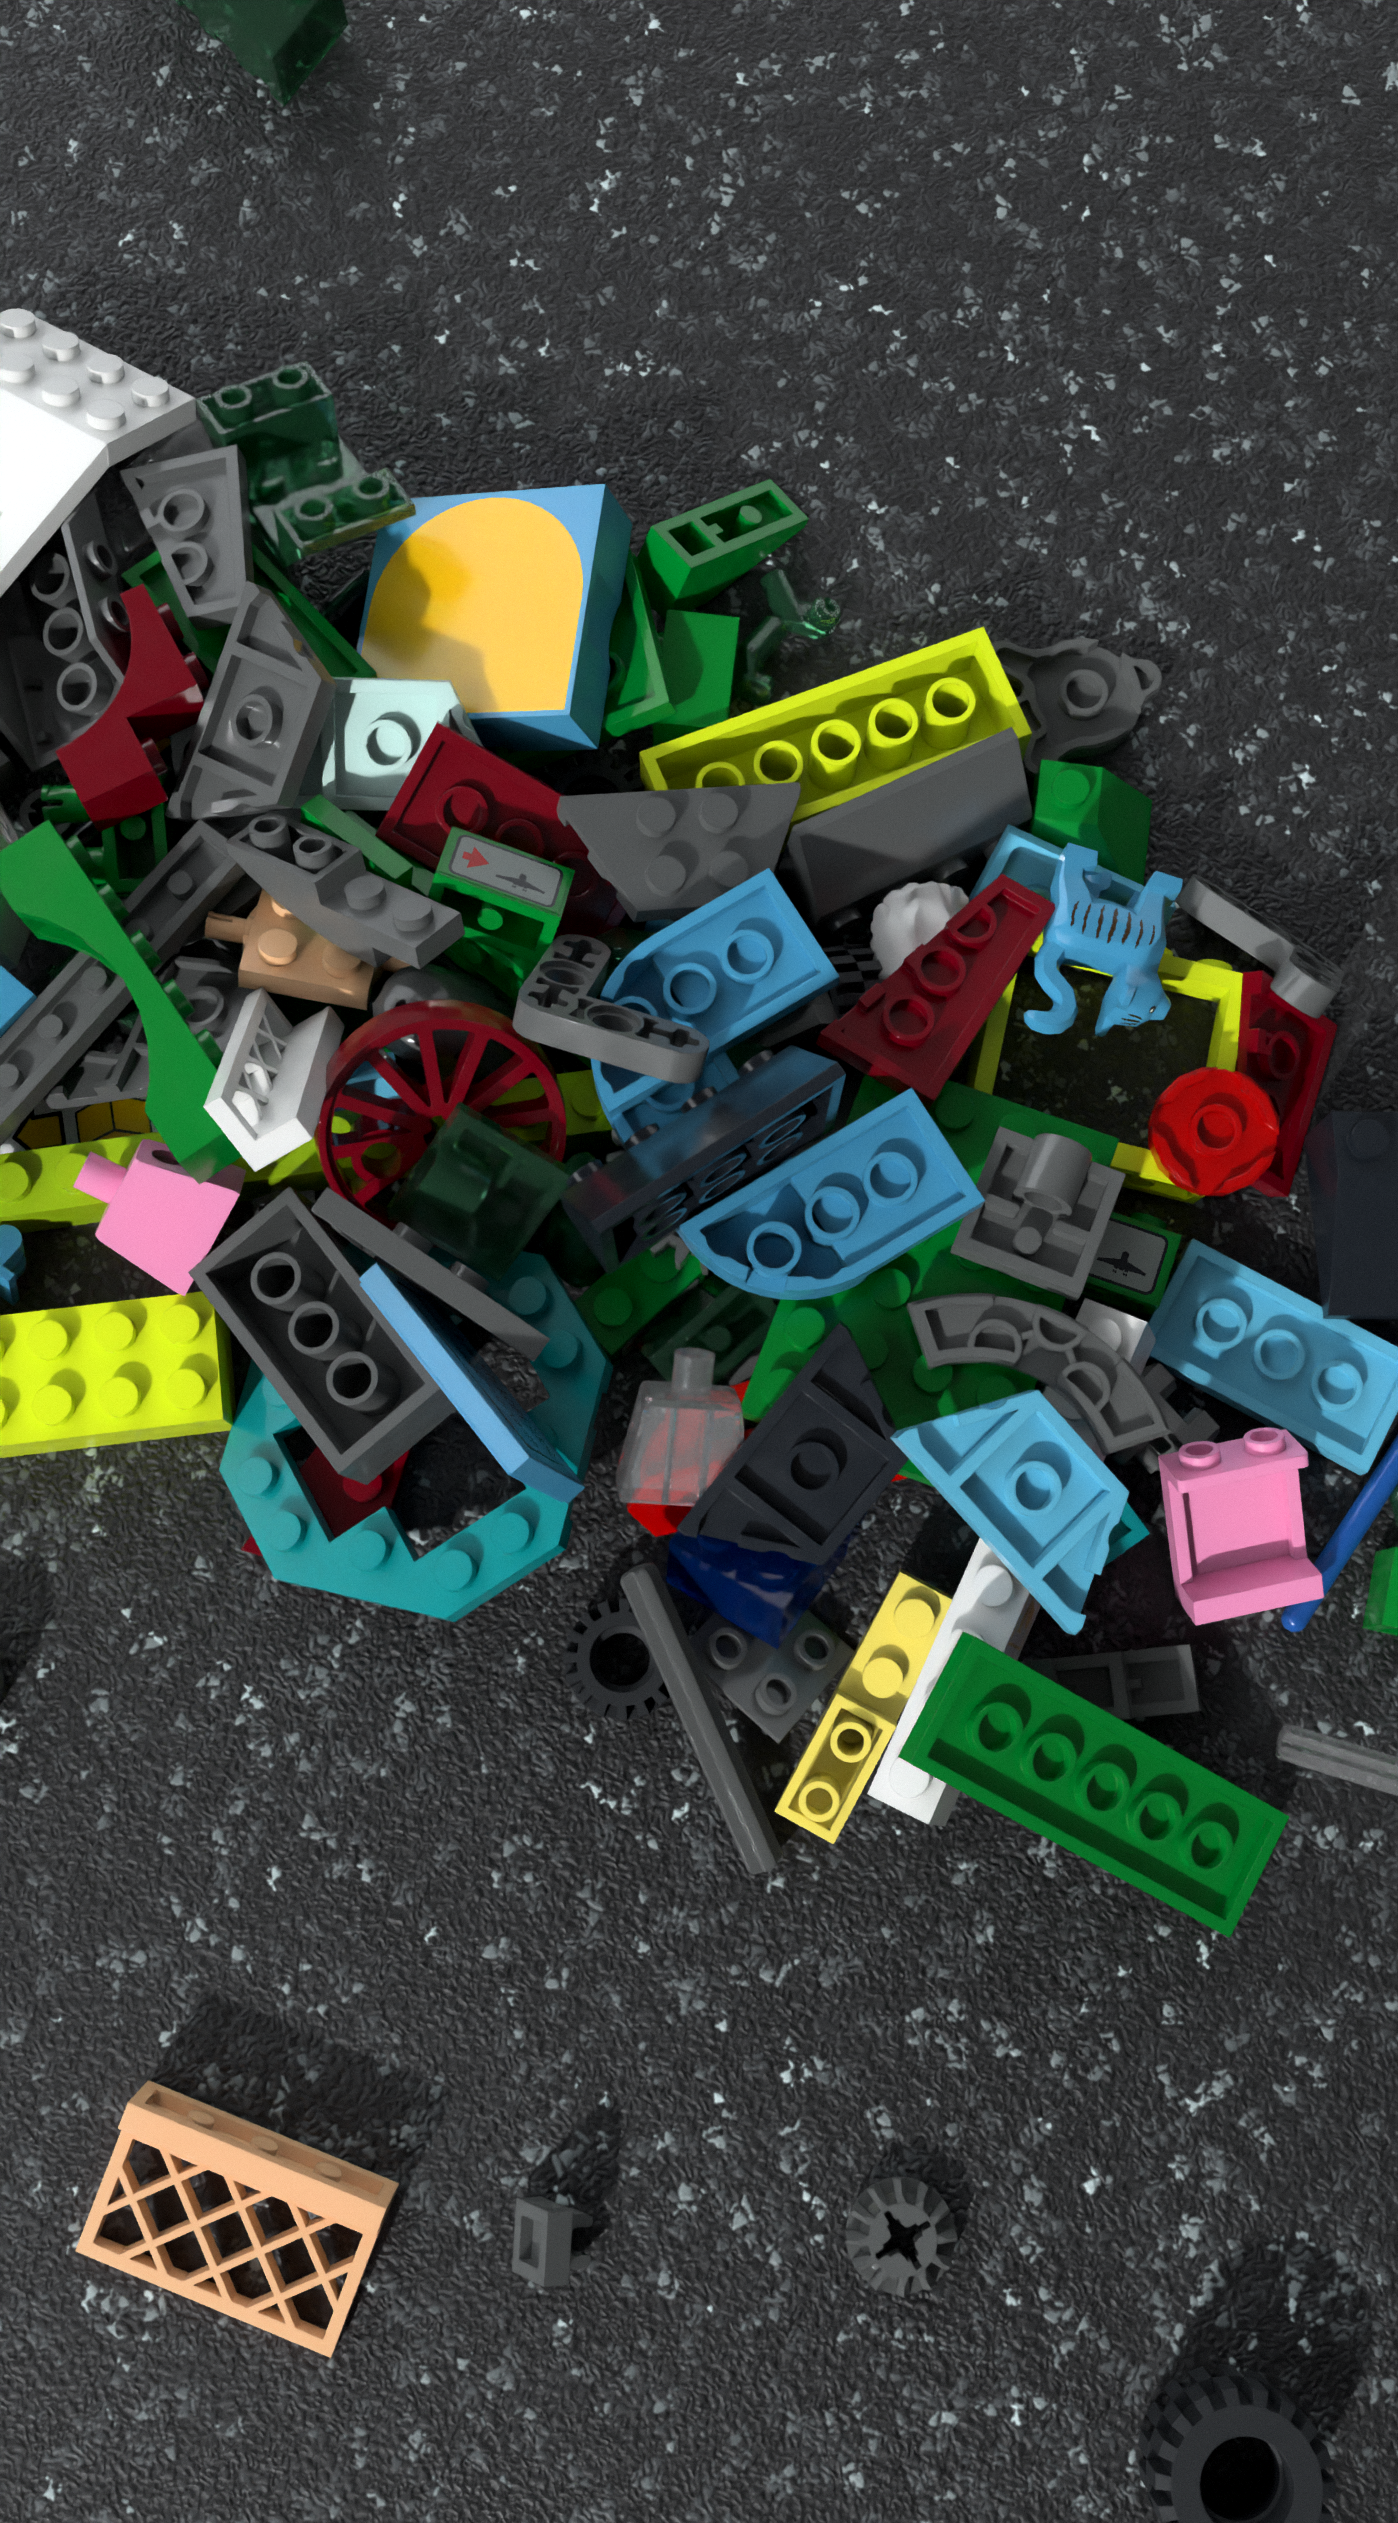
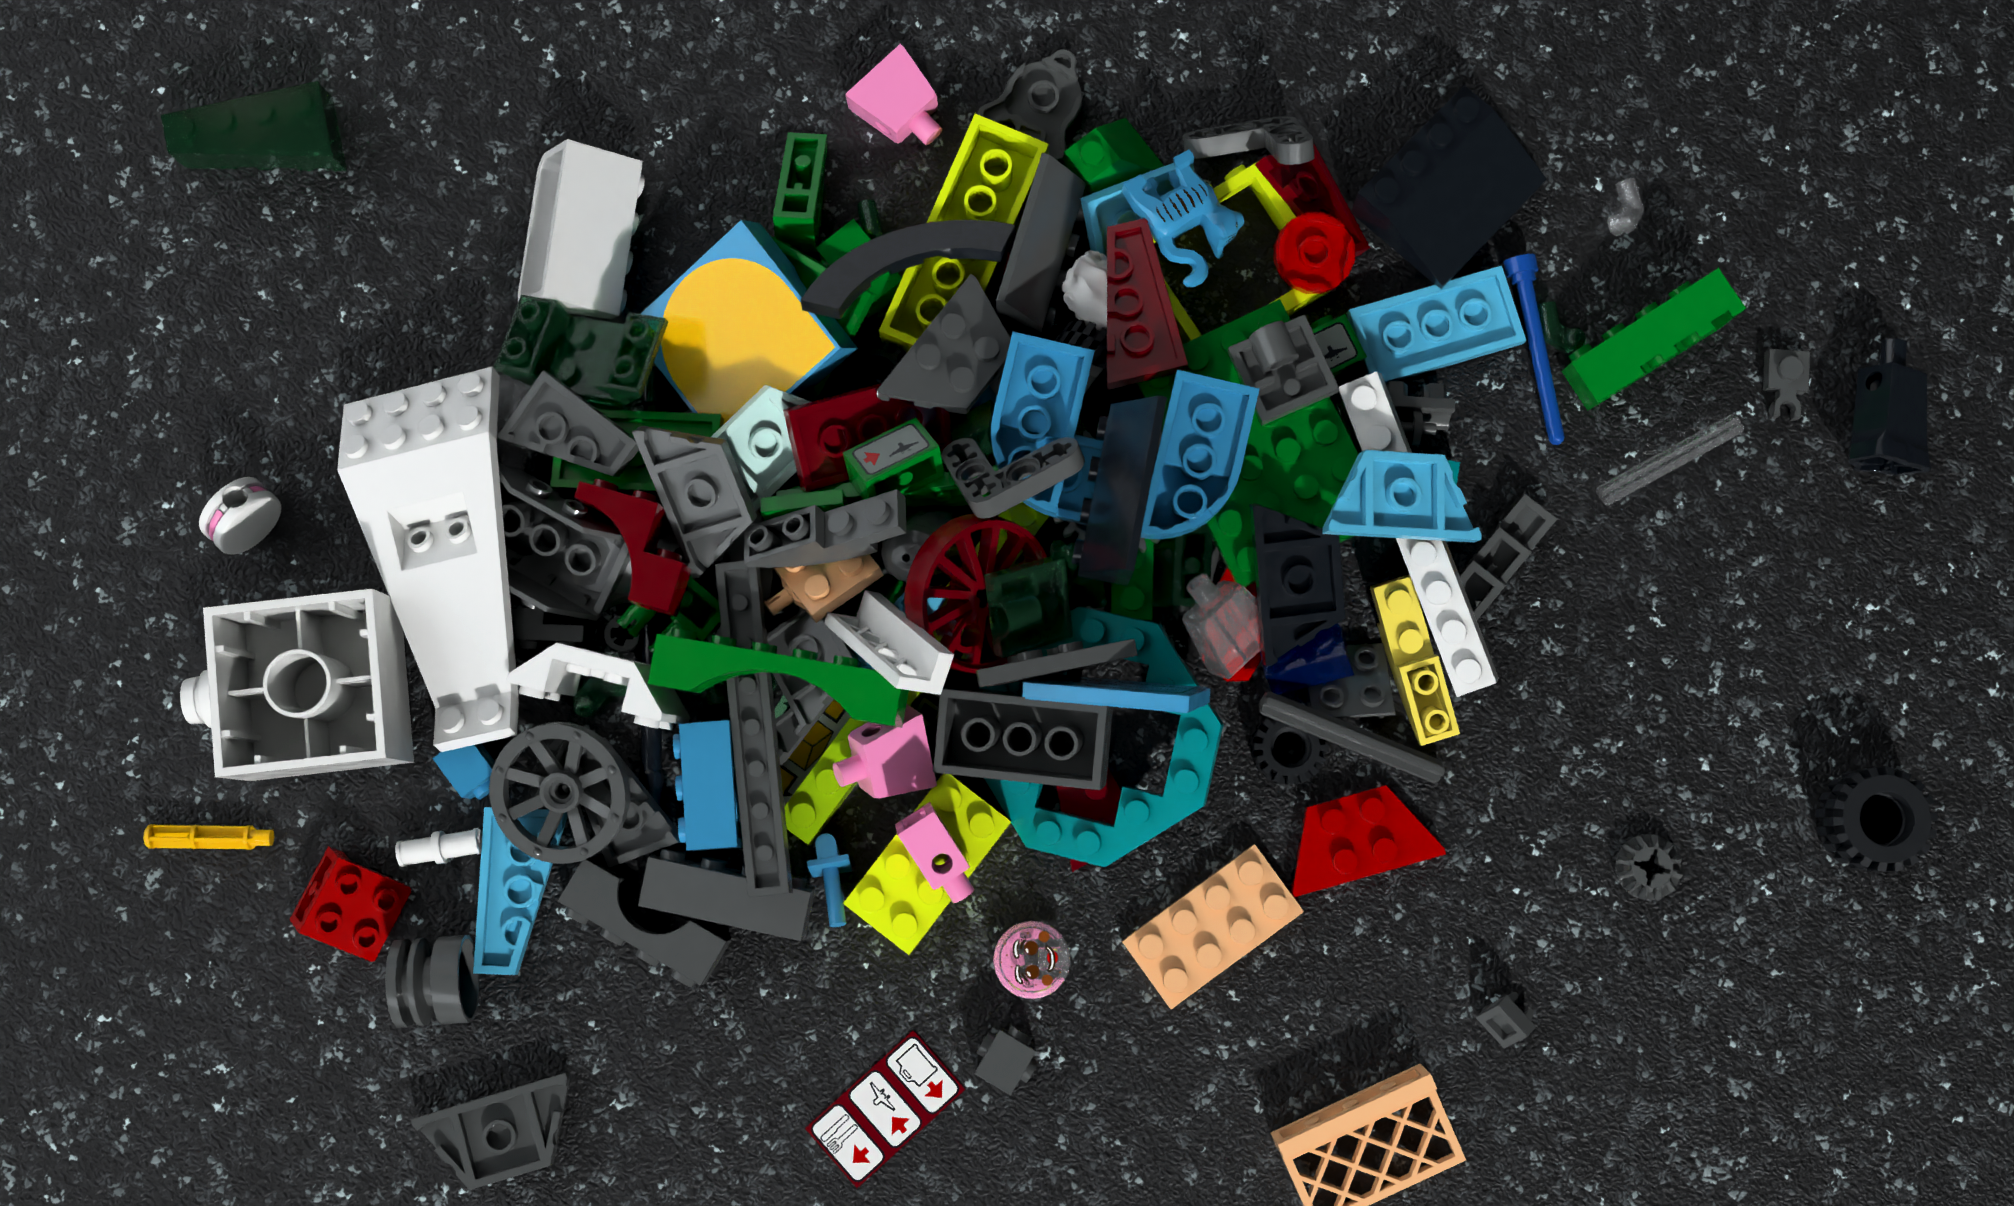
camera: 40 degrees left, 5 degrees up
(93, 1600) = (1031, 959): none -> clear head
(97, 1334) = (925, 838): none -> bright pink torso
(329, 1773) = (1212, 926): none -> light nougat plate
(451, 371) = (582, 229): none -> white windscreen
(595, 1847) = (1359, 839): none -> red wing
(743, 681) = (900, 249): none -> black tile
(801, 617) = (871, 188): clear green arm -> none
(918, 546) = (896, 99): none -> bright pink torso
(1051, 1350) = (1346, 426): dark grey tile -> none
(1093, 1784) = (1547, 595): green plate -> none
(1238, 1525) = (1496, 421): bright pink panel -> none

